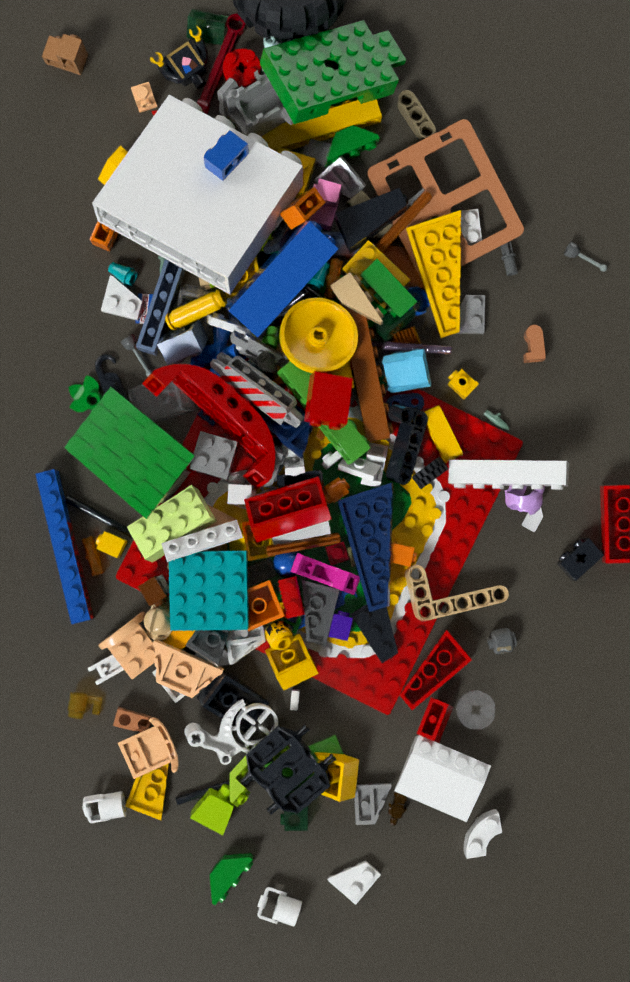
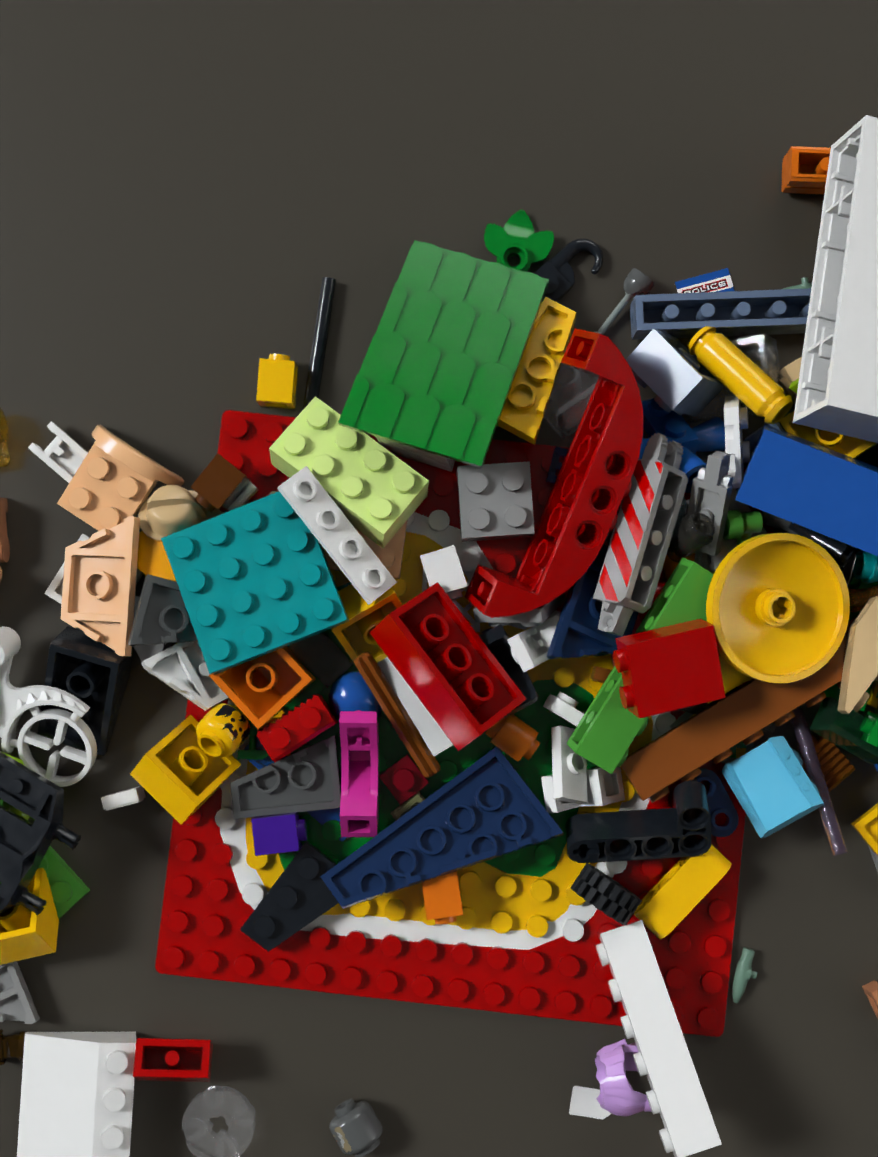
camera: 70 degrees right, 0 degrees up
(64, 546) = (244, 304): blue brick -> none
(92, 556) = (246, 358): clear orange pin -> none
(121, 301) = (703, 243): white wing -> none
(123, 273) = (753, 229): teal cone -> none
(155, 409) = (538, 371): none -> yellow wing
(438, 667) = (264, 1031): red wedge -> none
(451, 602) = (392, 1014): tan beam -> none
(462, 390) = (772, 896): yellow brick -> none

